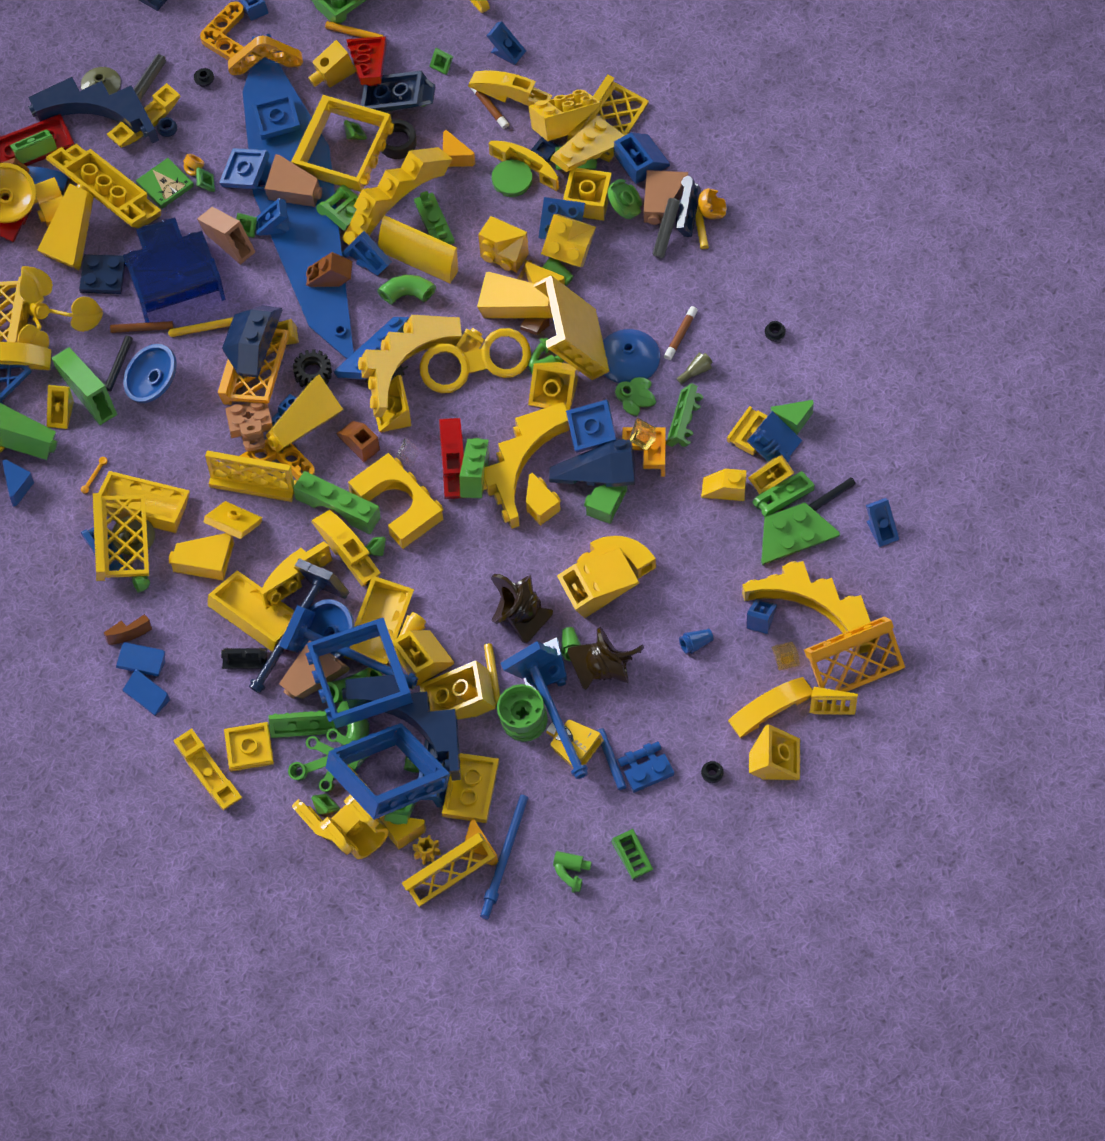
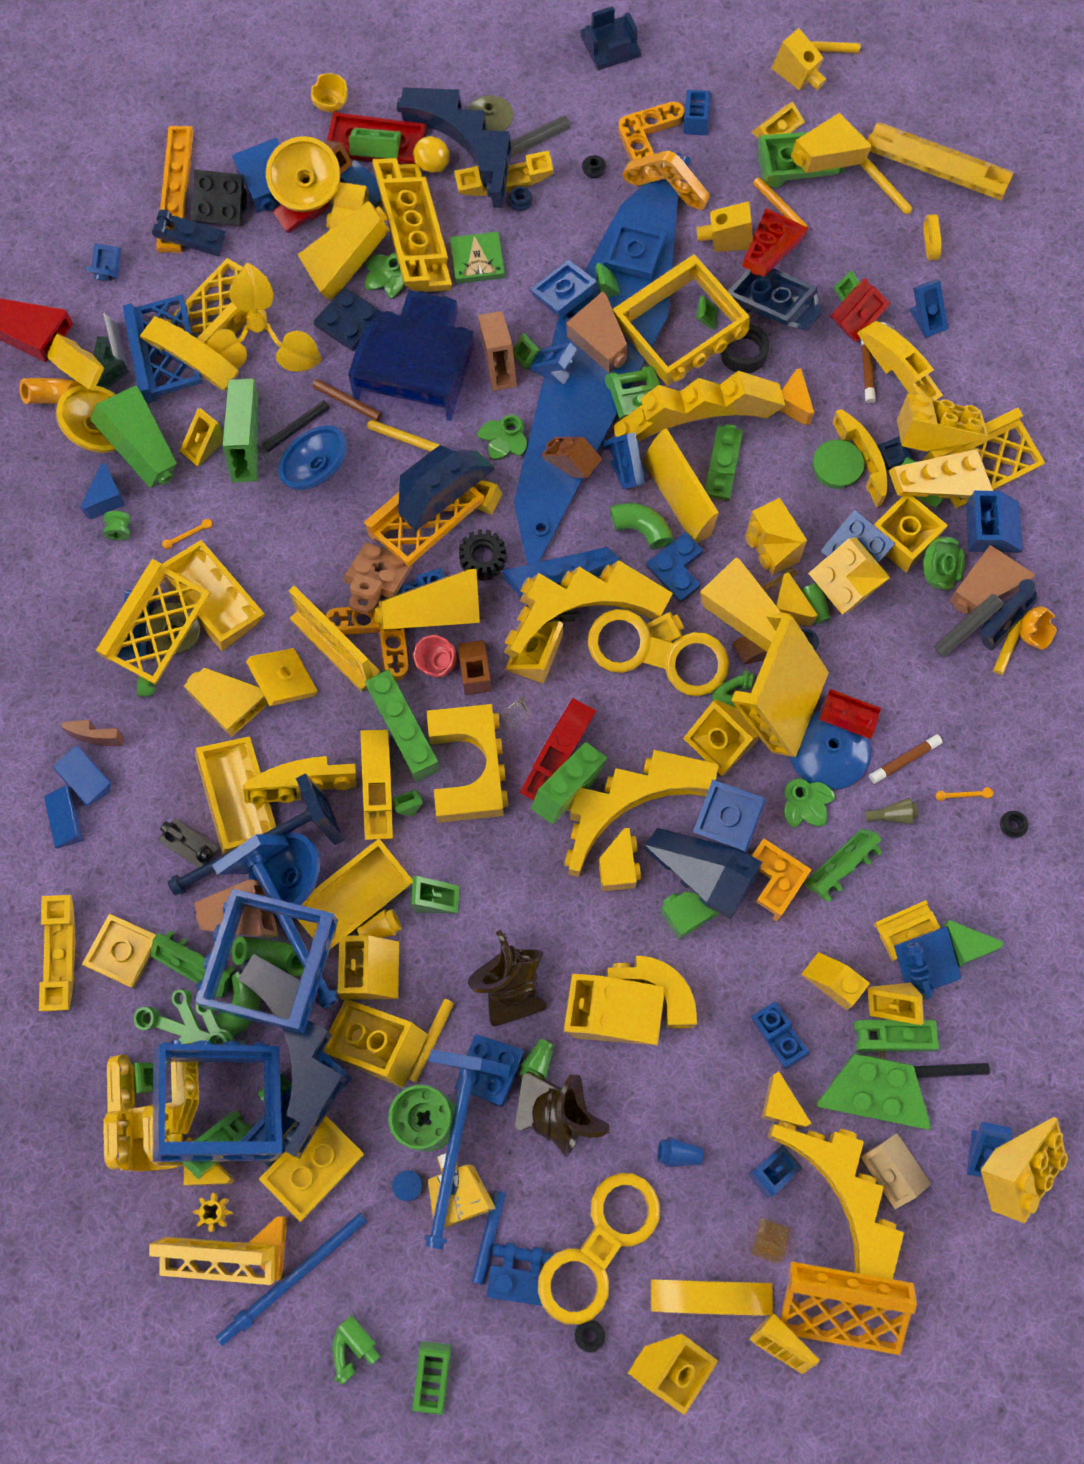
camera: 30 degrees right, 10 degrees up
(41, 496) = (116, 525): none -> bright green wheel
(82, 131) = (431, 154): none -> yellow hair
(107, 231) = (383, 275): none -> bright green plate
(193, 162) = (518, 253): light orange tile -> none
(205, 180) = (518, 277): bright green slope -> none
(271, 147) = (606, 281): none -> bright green slope
(271, 291) = (502, 440): none -> bright green plate
(328, 444) = (435, 656): none -> coral hair
(432, 590) = (434, 896): none -> bright green slope
(444, 302) = (670, 566): none -> blue plate
(458, 70) = (859, 309): none -> red plate
(539, 762) = (407, 1185): none -> blue tile
(626, 325) = (850, 714): none -> red plate
(642, 434) = (779, 864): clear yellow slope -> none
(683, 720) = (599, 1249): none -> yellow bar
(710, 538) = (779, 1035): none -> blue slope
(740, 572) = (782, 1104): none -> yellow slope
(745, 324) = (985, 793): none -> light orange hinge
(839, 569) = (896, 1171): none -> tan panel
(909, 517) = (1024, 1170): none -> yellow slope

